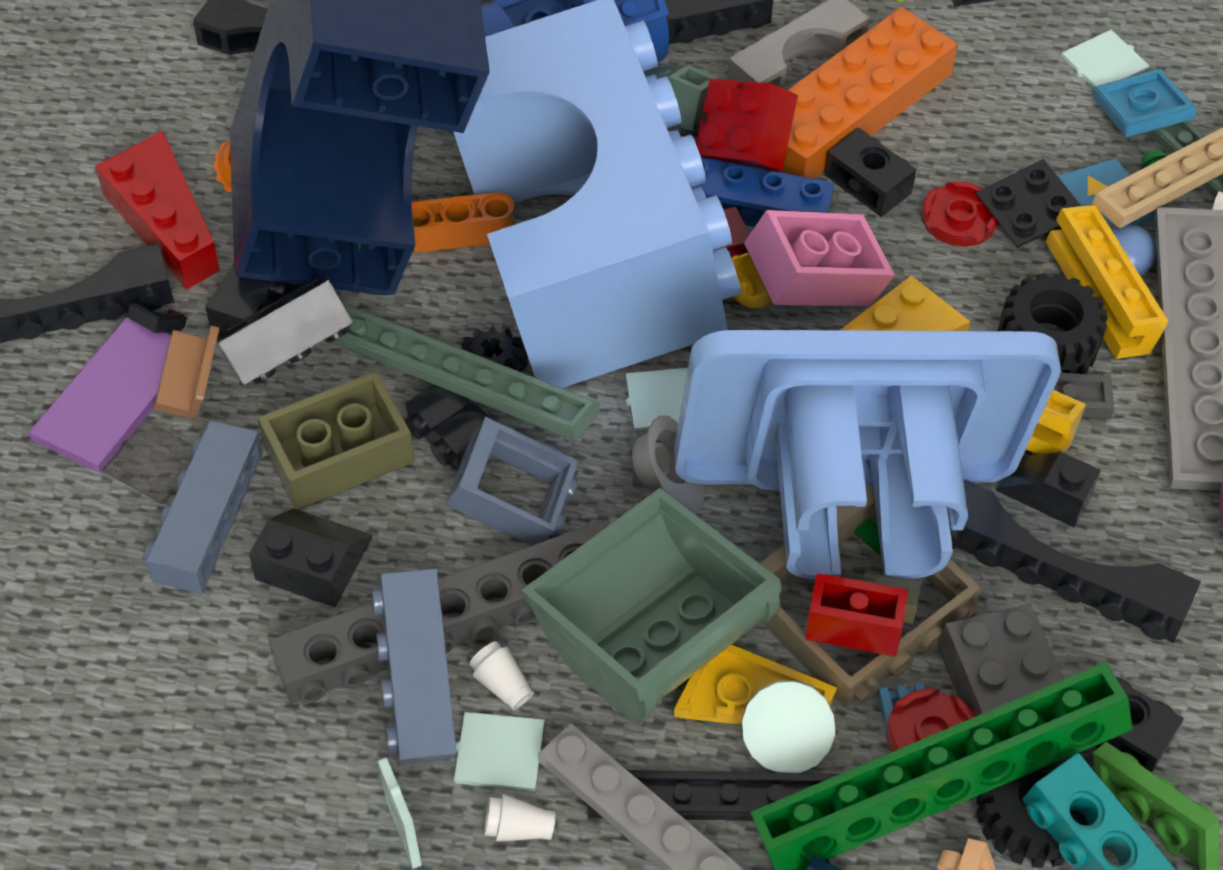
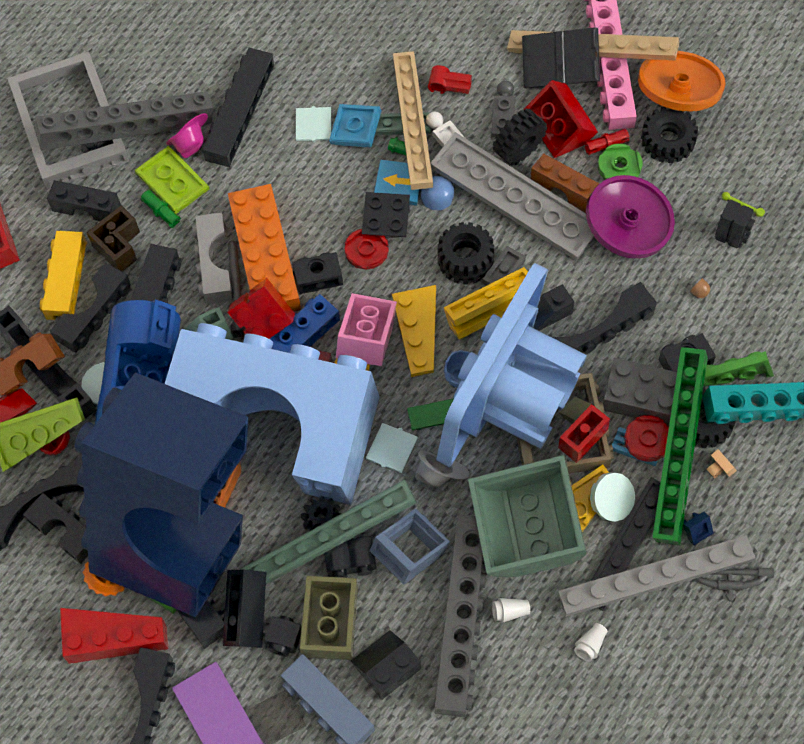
camera: 55 degrees left, 10 degrees up
(156, 321) = (184, 674): black tile -> none
(185, 373) = (236, 672): medium nougat panel -> none
(274, 391) = (282, 635): none -> black brick
(399, 813) = (565, 692): light aqua piece -> none
(416, 667) = (493, 645): sand blue brick -> none
(499, 751) = (546, 632): light aqua piece -> none
(1096, 258) = (444, 210): yellow brick -> none

